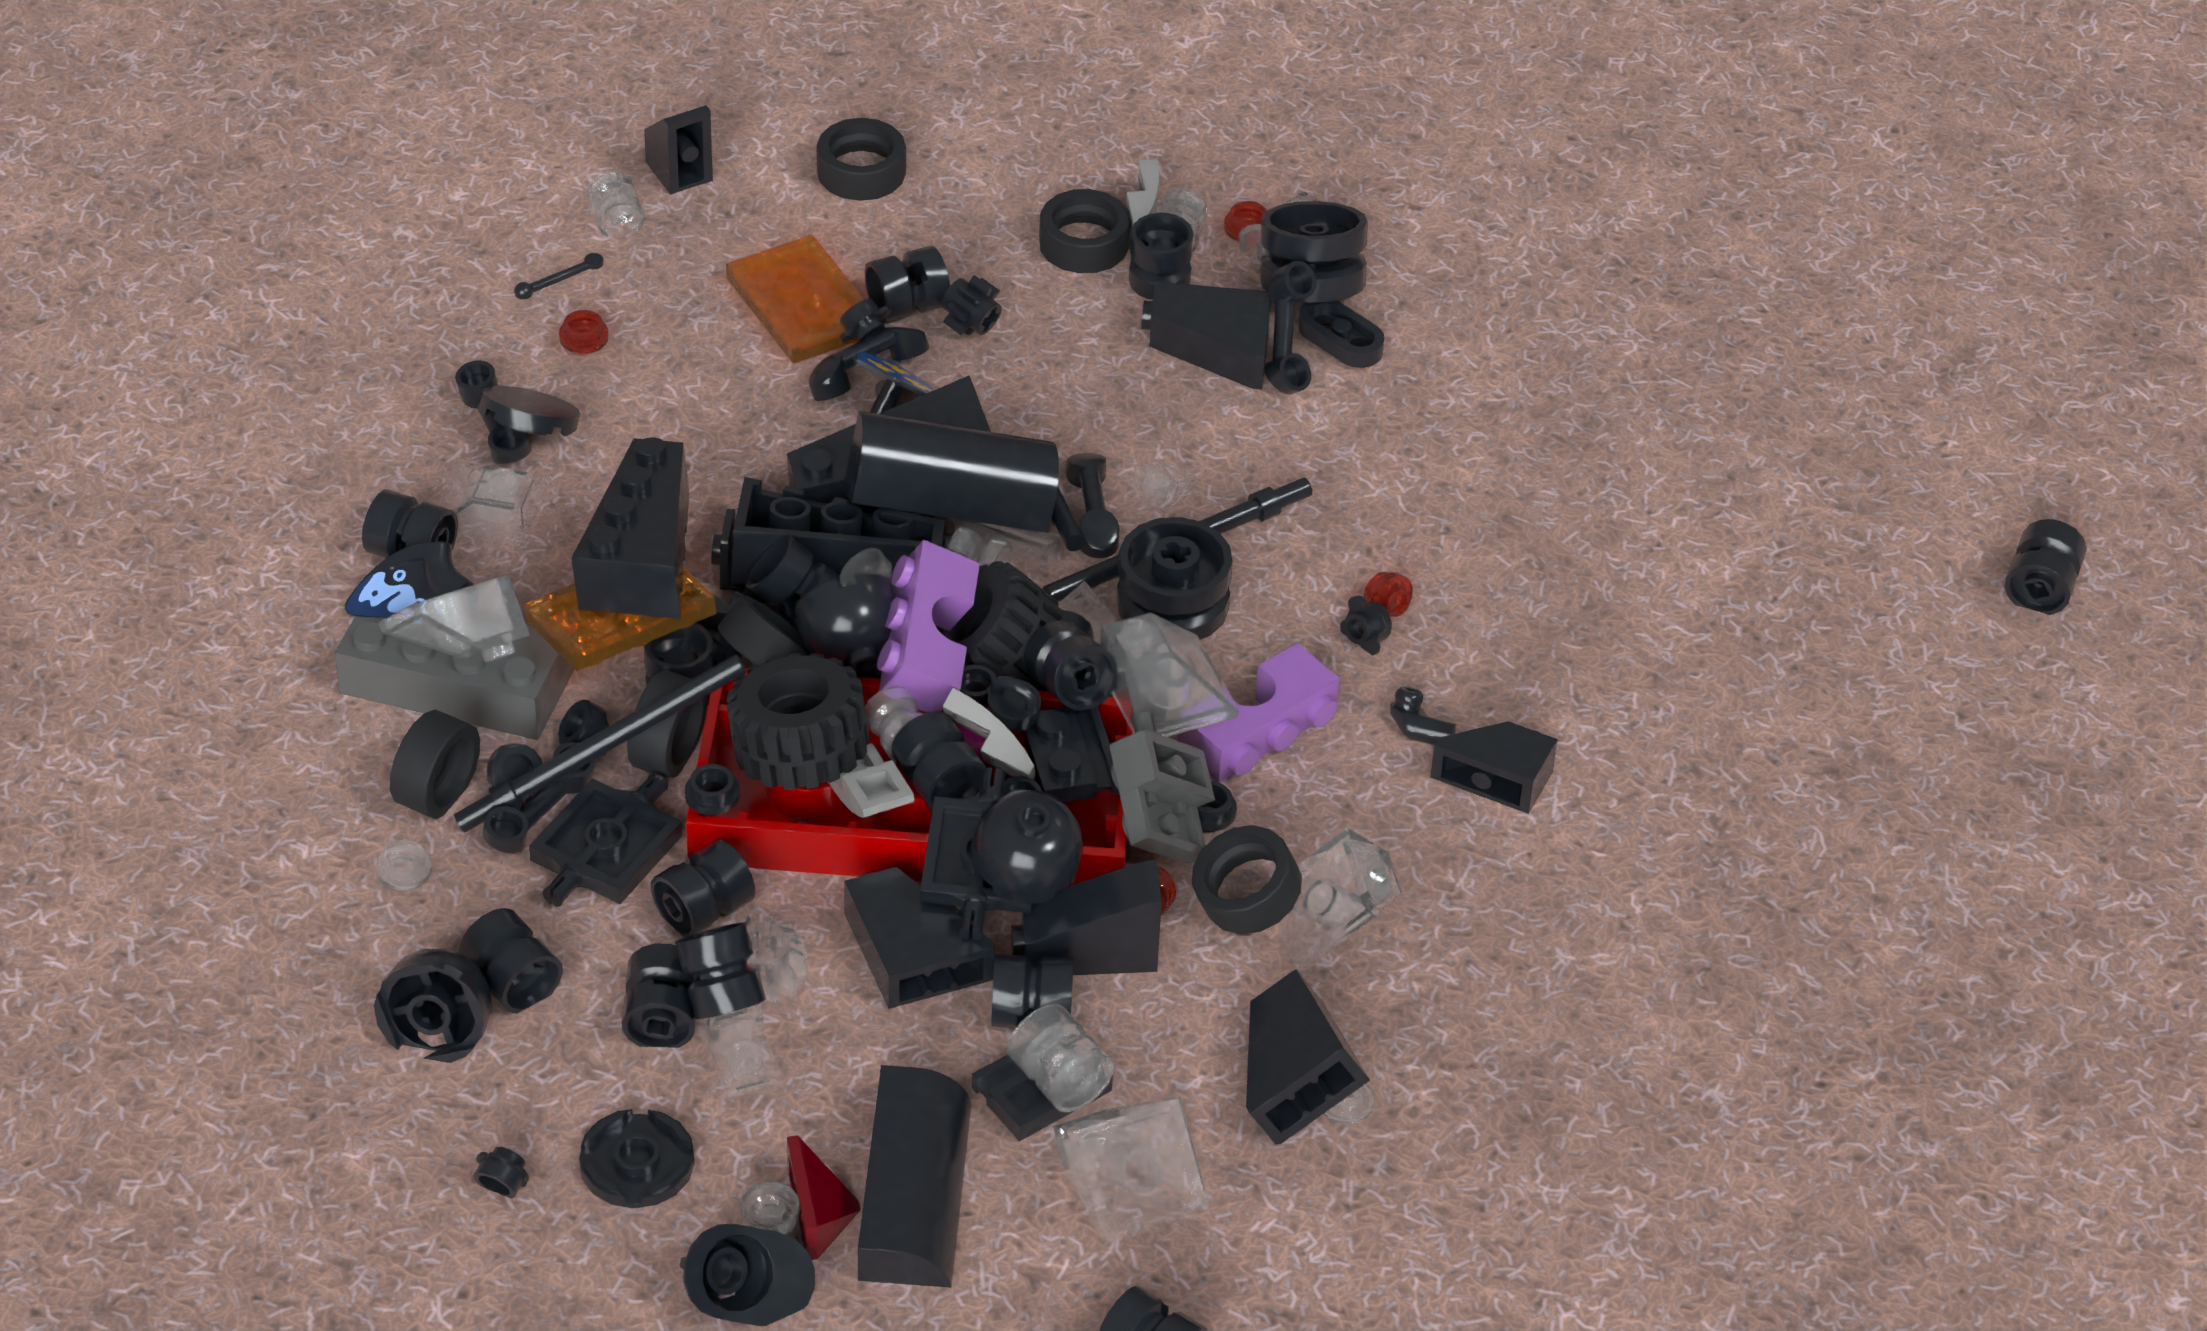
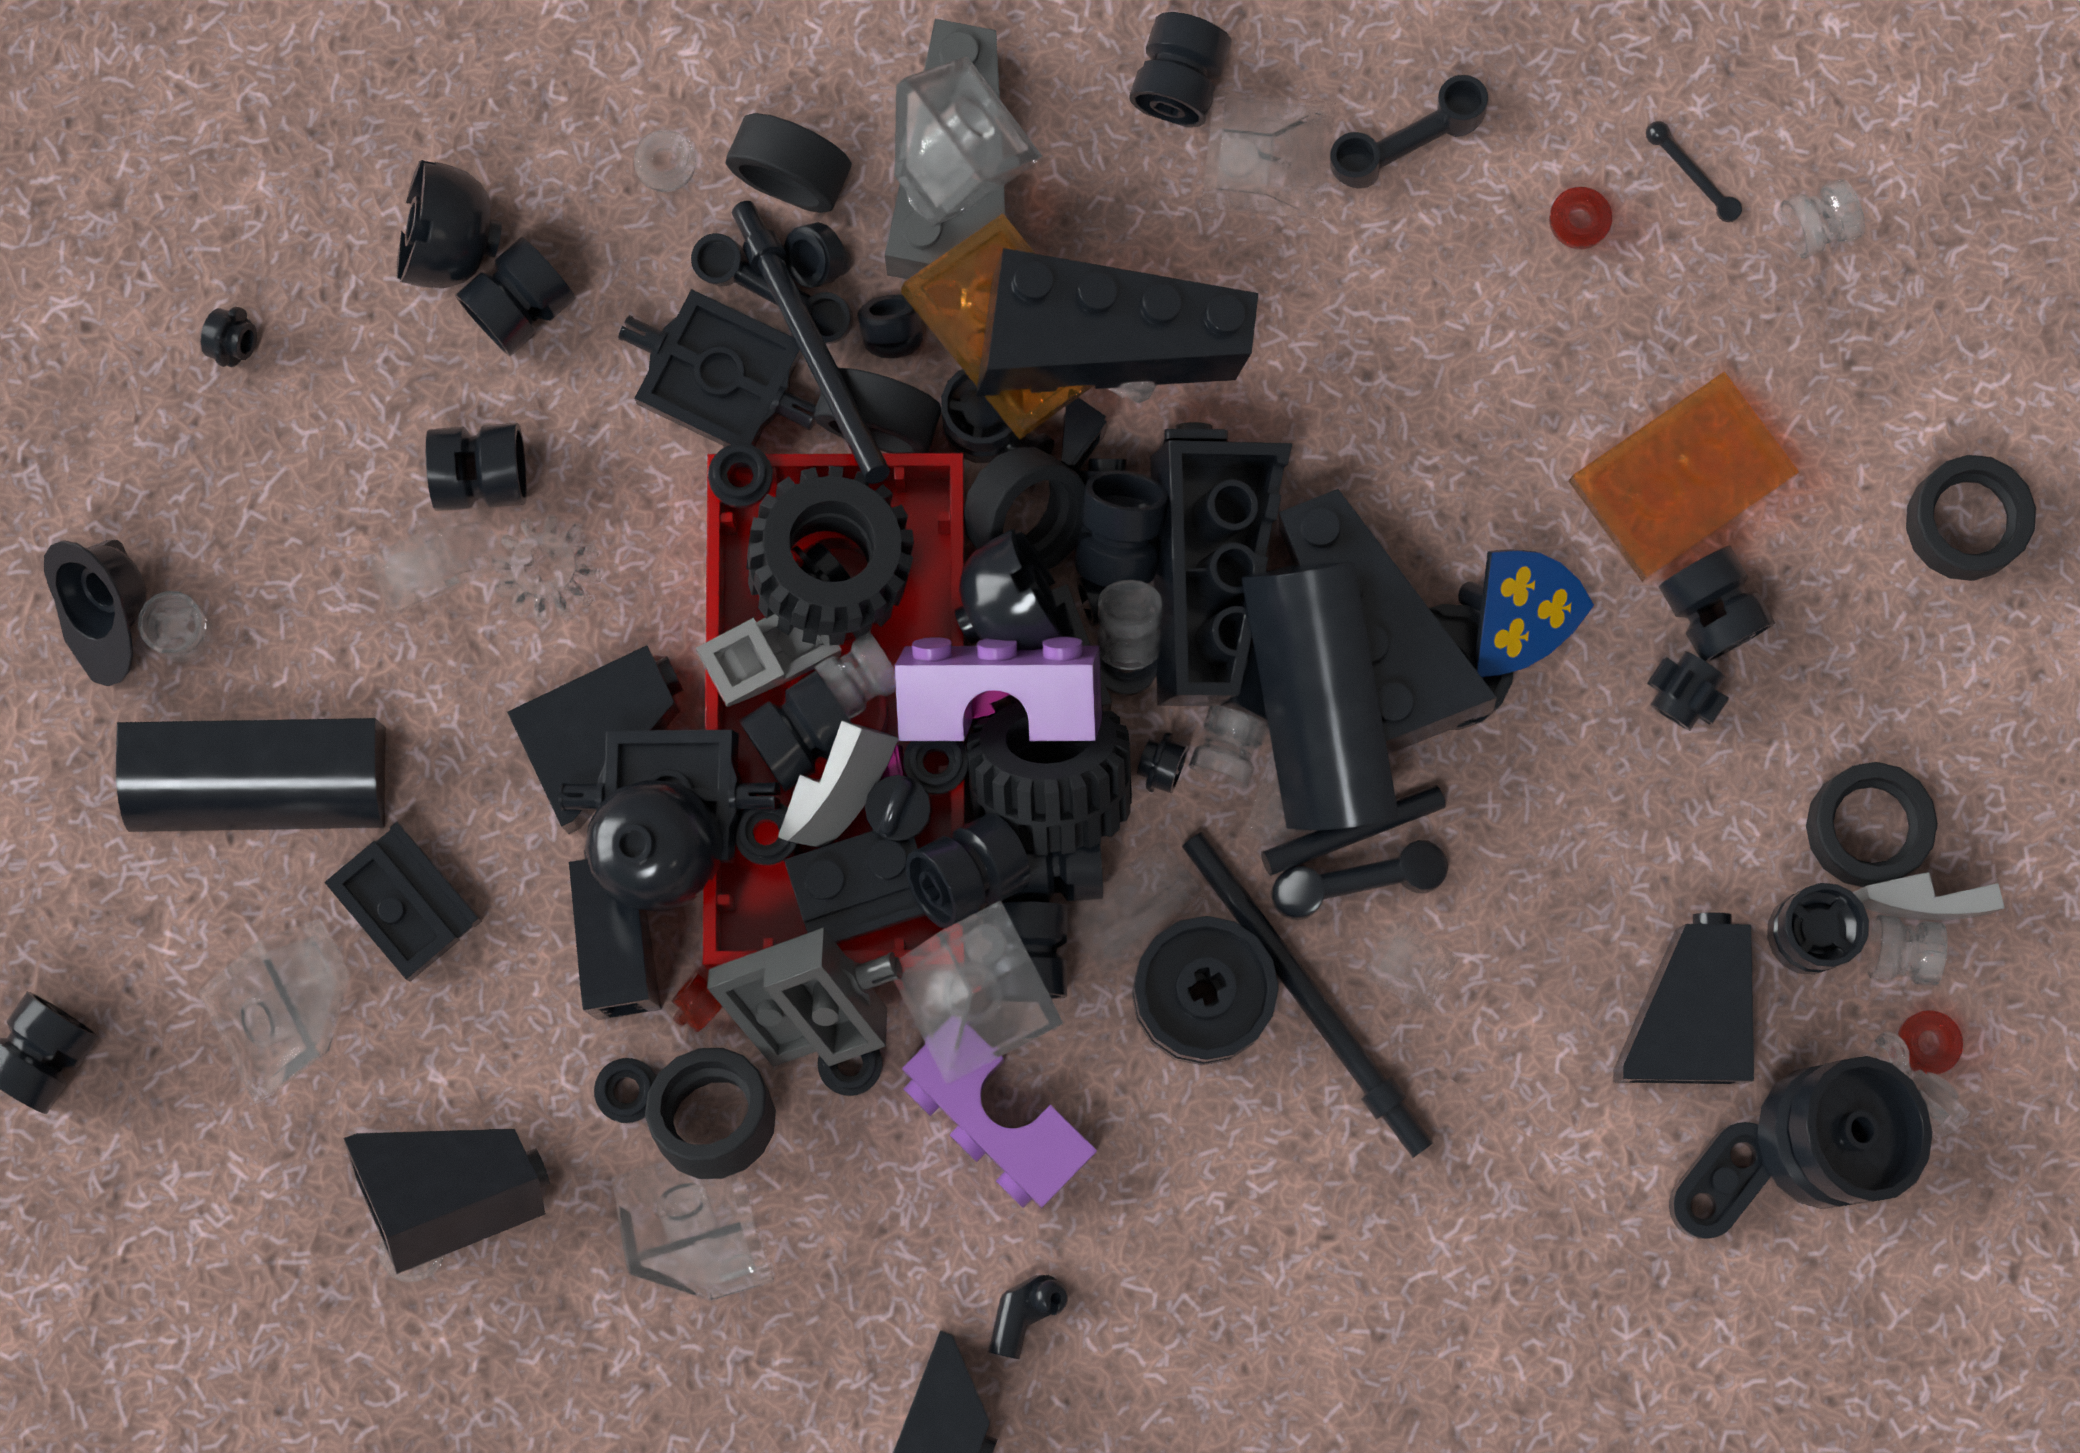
camera: 85 degrees right, 35 degrees up
(406, 579) = (1084, 97): black arm -> none
(529, 410) = (1408, 171): black tile -> none
(637, 1175) = (289, 493): black tile -> none
(681, 149) = (1934, 279): black slope -> none
(707, 886) = (635, 484): black wheel -> none
(720, 970) = (472, 522): black wheel -> none
(823, 1198) = (218, 674): dark red slope -> none
(830, 375) = (1620, 612): black bar -> none
(863, 320) = (1618, 556): black plate -> none
(1025, 987) = (520, 877): black wheel -> none
(1060, 1058) = (385, 916): clear wheel -> none
(1222, 936) = (606, 1084): none -> black plate
(1289, 285) = (1750, 1107): black bar -> none
(1366, 624) = (1172, 1238): black plate -> none
(1391, 591) = (1228, 1264): clear red plate -> none

